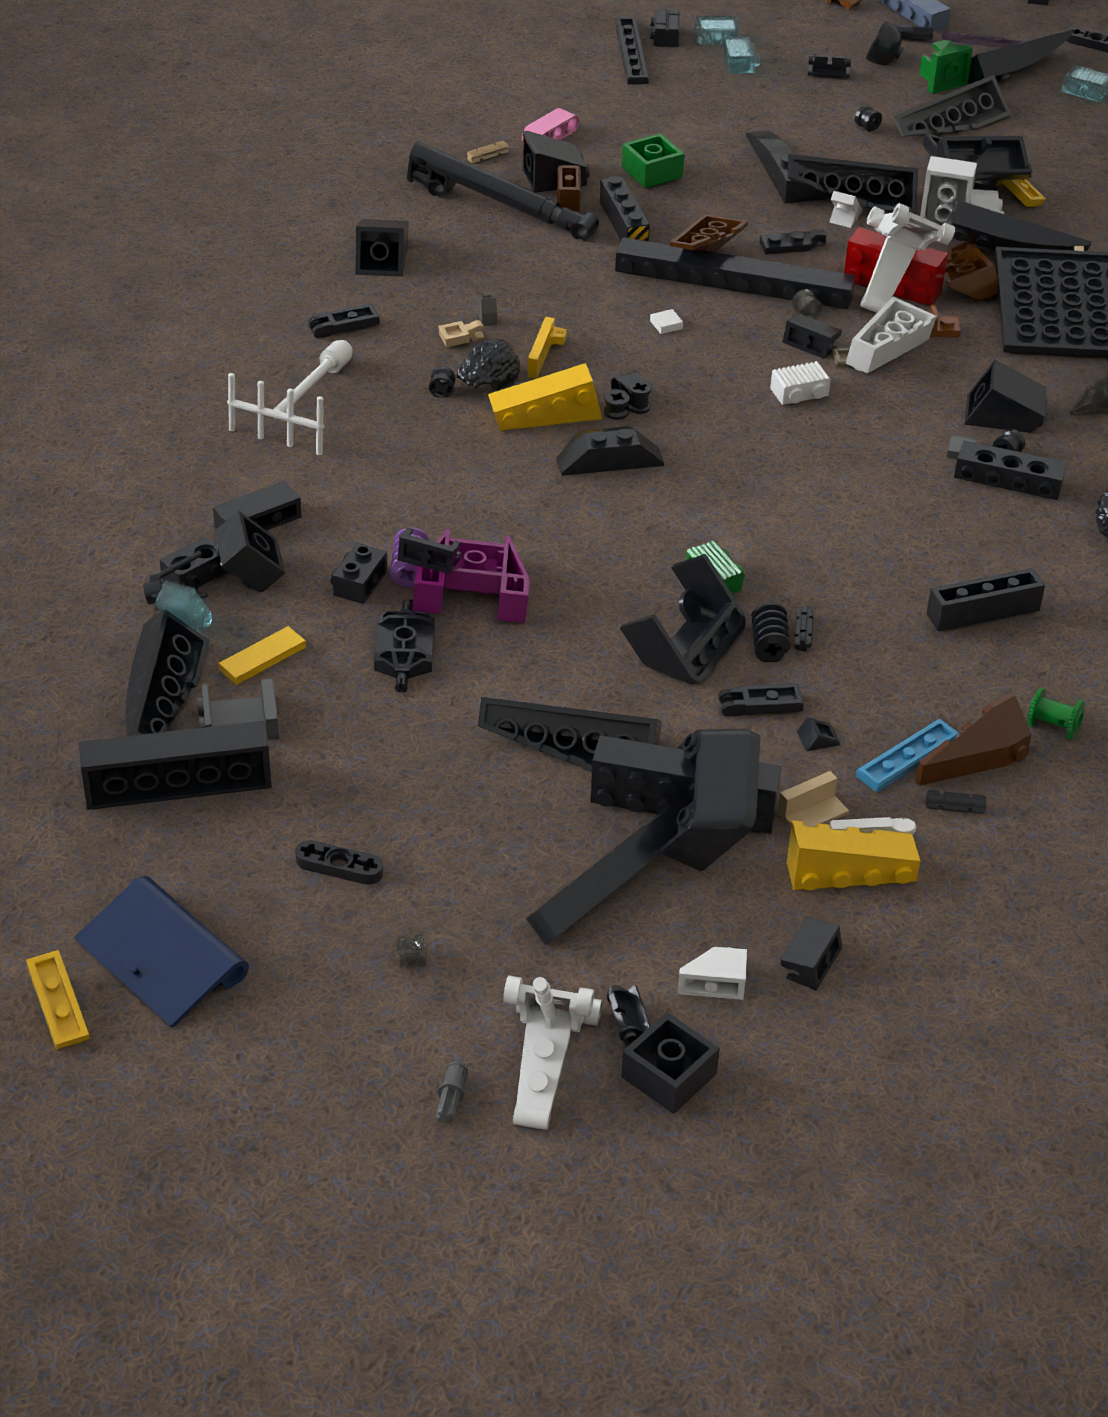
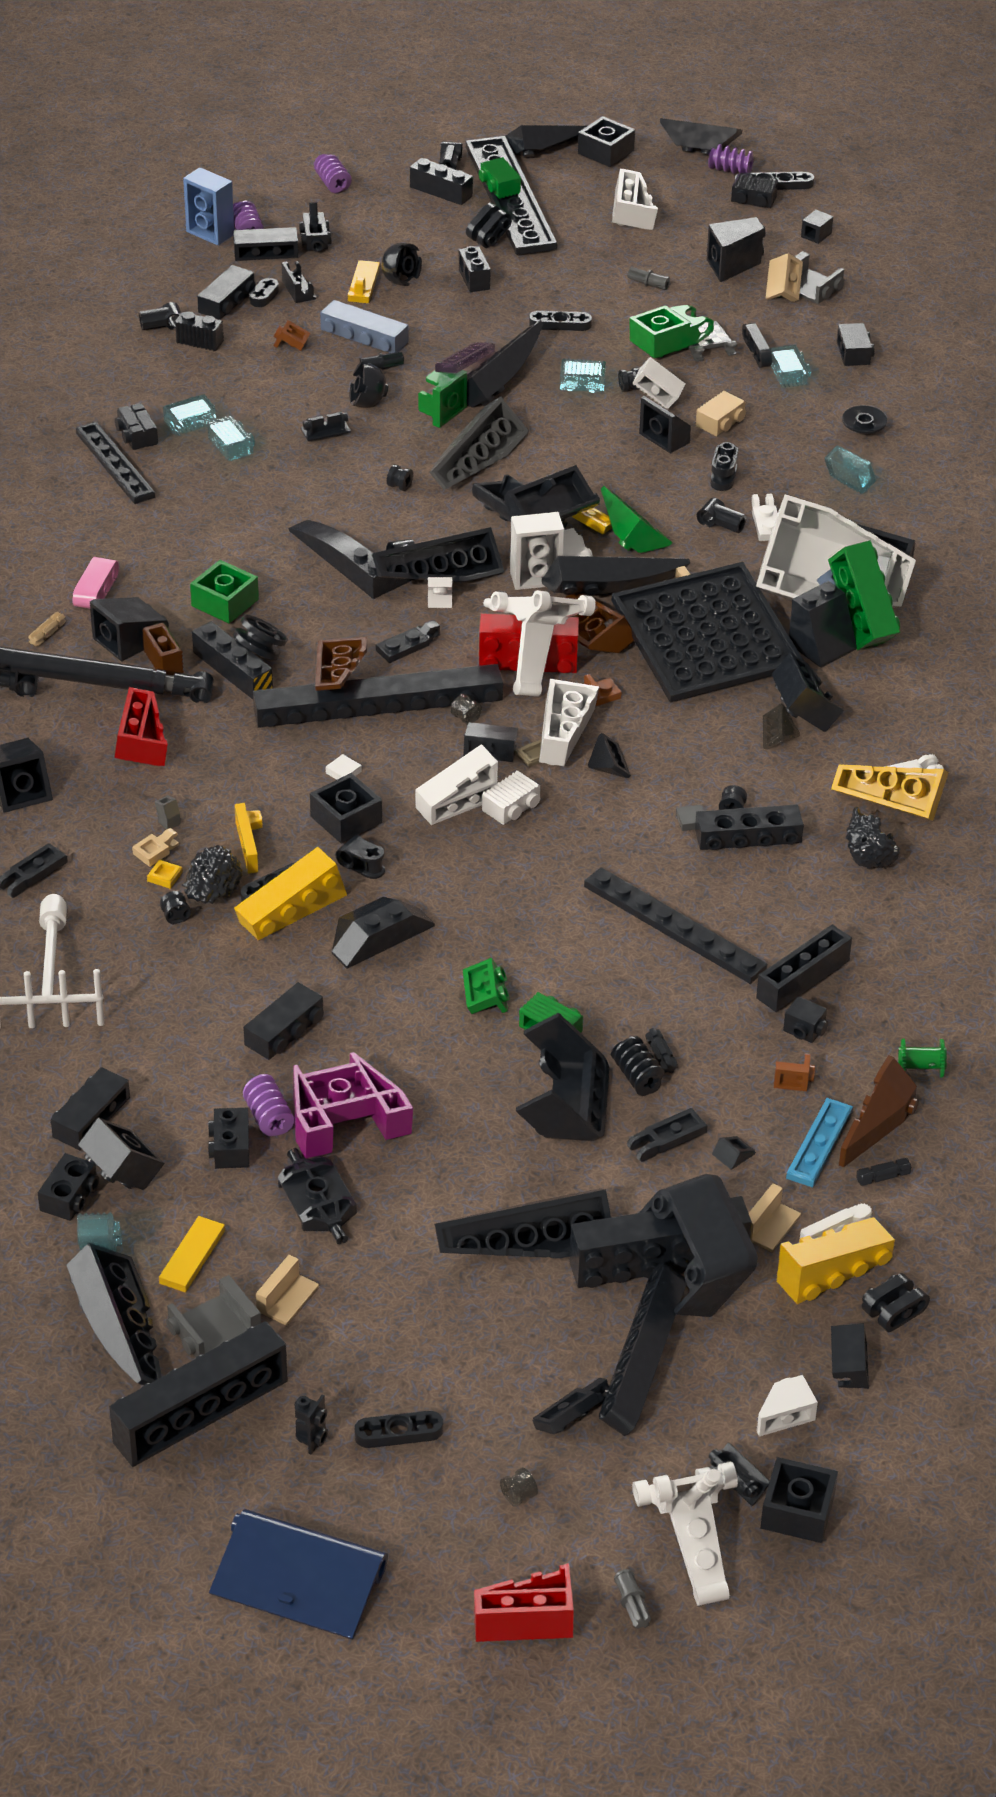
camera: 25 degrees left, 0 degrees up
(57, 999) = (241, 1654): yellow hinge -> none
(153, 588) = (54, 1224): black plant -> none
(257, 823) = (311, 1422): none -> black hinge
(318, 711) = (285, 1292): none -> tan panel
(339, 1061) = (526, 1608): none -> red wedge
(428, 553) = (302, 1099): black hinge -> none
(452, 356) = (164, 874): none -> yellow tile
(472, 496) = (283, 1021): none -> black brick
(505, 240) = (140, 730): none -> red wedge
(513, 900) = (572, 1406): none -> black hinge
(616, 404) = (355, 876): black wheel -> none
(643, 347) = (346, 807): none -> black brick
(658, 200) = (260, 637): none -> black wheel
(673, 524) = (485, 986): none -> green bracket
(753, 359) = (458, 786): none -> white wedge
(885, 528) = (675, 925): none -> black plate
(889, 920) = (895, 1302): none -> black brick
(915, 378) = (608, 757): none -> black slope
(918, 688) = (794, 1075): none -> dark orange bracket
(959, 644) = (805, 1020): none -> black brick
(1006, 400) = (705, 756): black slope -> none
(1056, 207) = (631, 527): none -> green wedge

